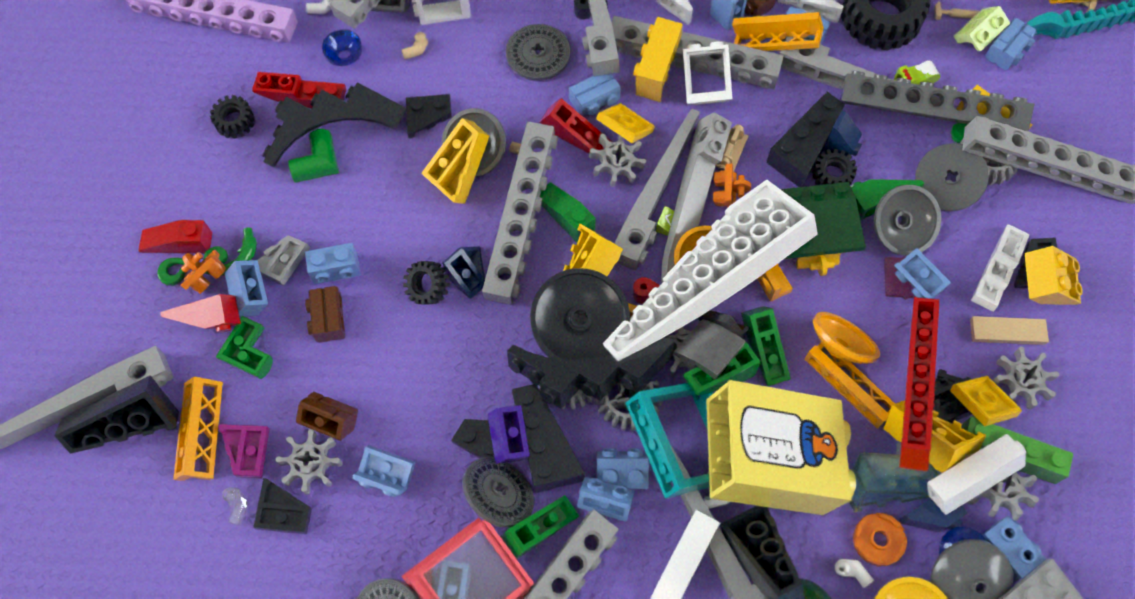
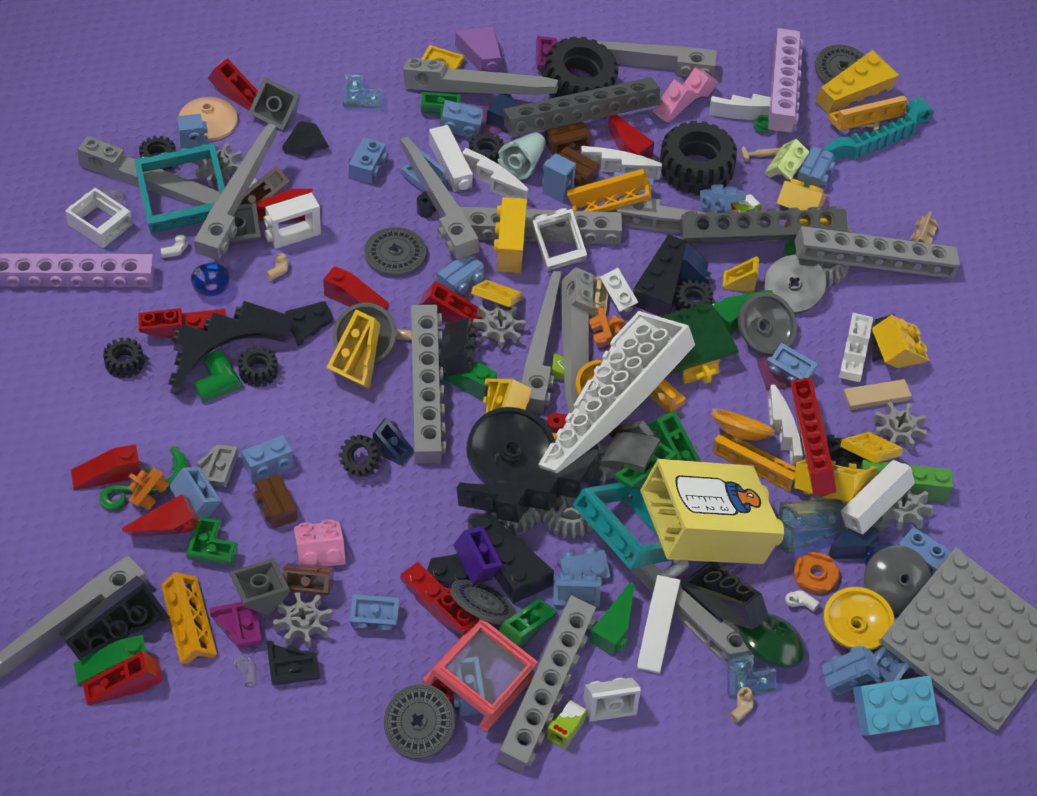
camera: 20 degrees left, 15 degrees down
(108, 462) = (107, 658): none -> green slope
(109, 487) = (123, 679): none -> red slope
(272, 415) = (260, 586): none -> dark grey slope
(354, 374) = (320, 543): none -> bright pink bracket
(357, 143) = (258, 356): none -> black tyre
(451, 467) = (437, 599): none -> red slope
(479, 90) = (349, 289): none -> red slope
(564, 178) = (458, 346): none -> black brick
(632, 555) = (612, 628): none -> green slope
(755, 146) = (619, 290): none -> white hinge
(892, 341) = (784, 424): none -> white slope
(895, 58) = (720, 198): none -> medium blue bracket
(895, 155) = (742, 277): none -> yellow slope
(986, 73) = (795, 194): none -> yellow slope
(1116, 139) = (925, 229): none -> tan hinge

